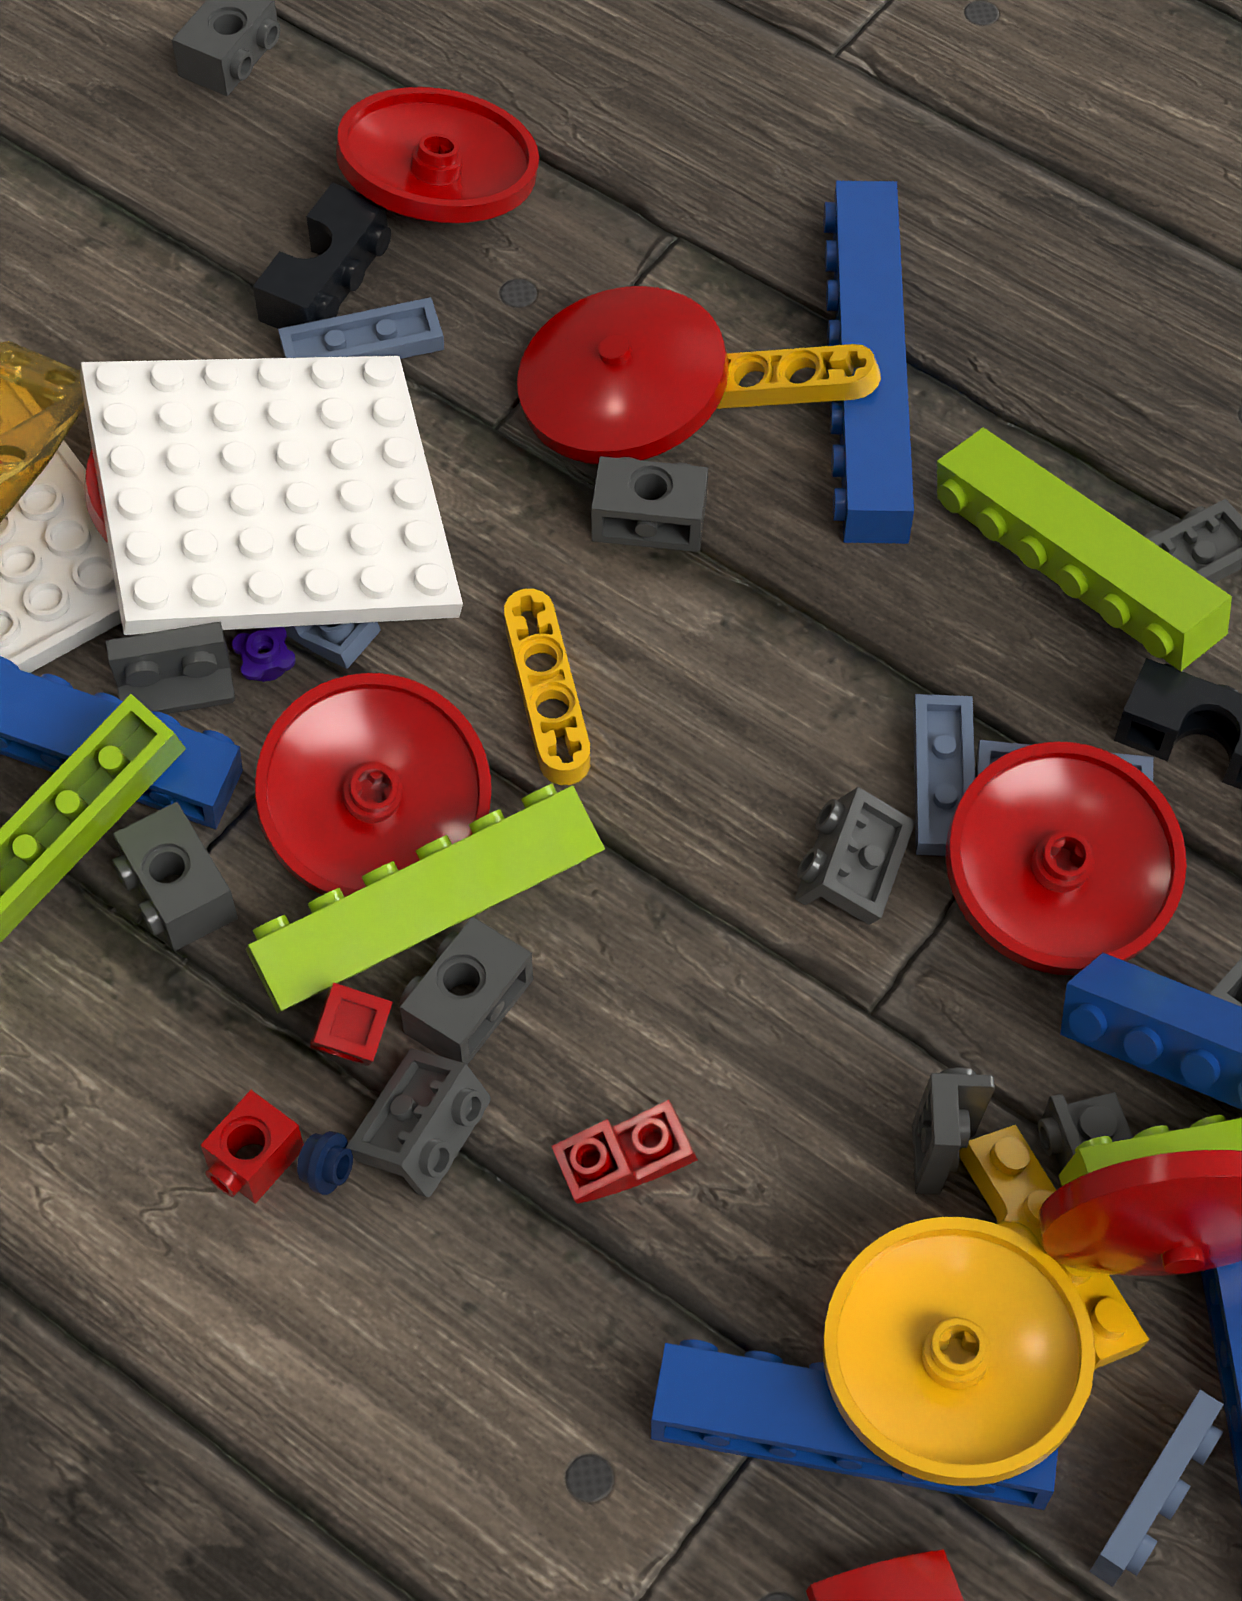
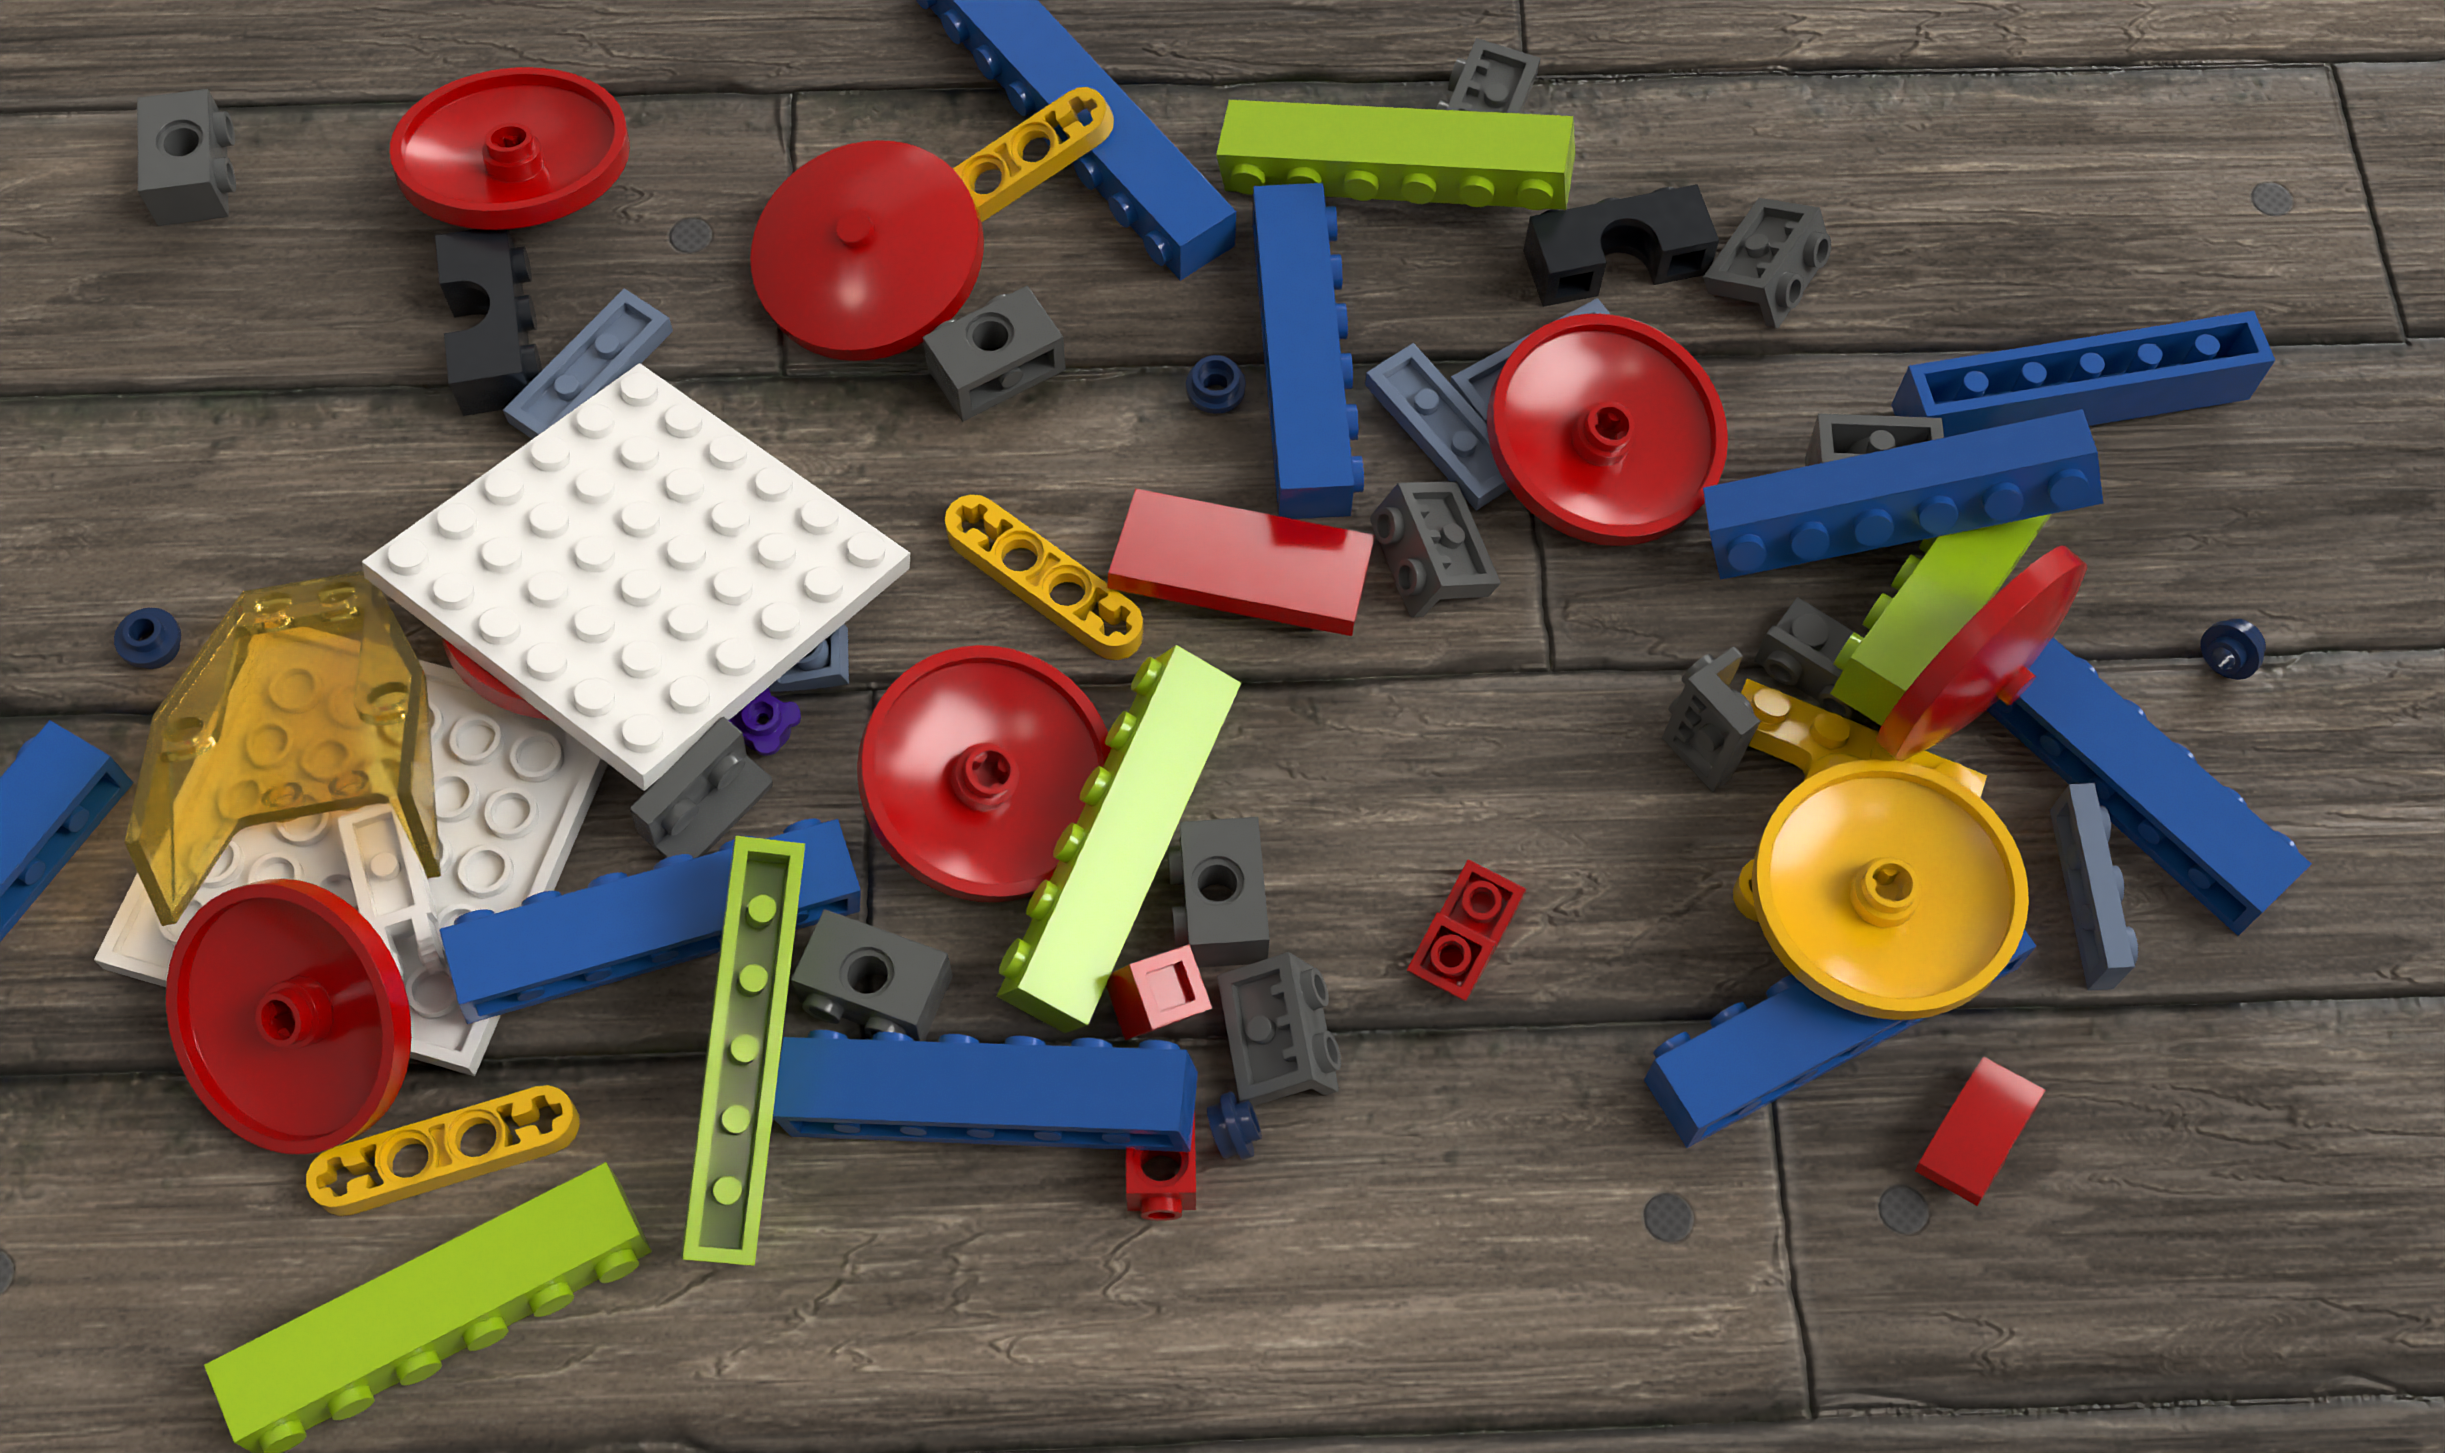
camera: 40 degrees left, 5 degrees up
(174, 1007) = (987, 1091): none -> blue brick
(697, 771) = (1241, 562): none -> tile
(796, 619) = (1215, 371): none -> dark blue plate
(880, 649) = (1303, 353): none -> blue brick

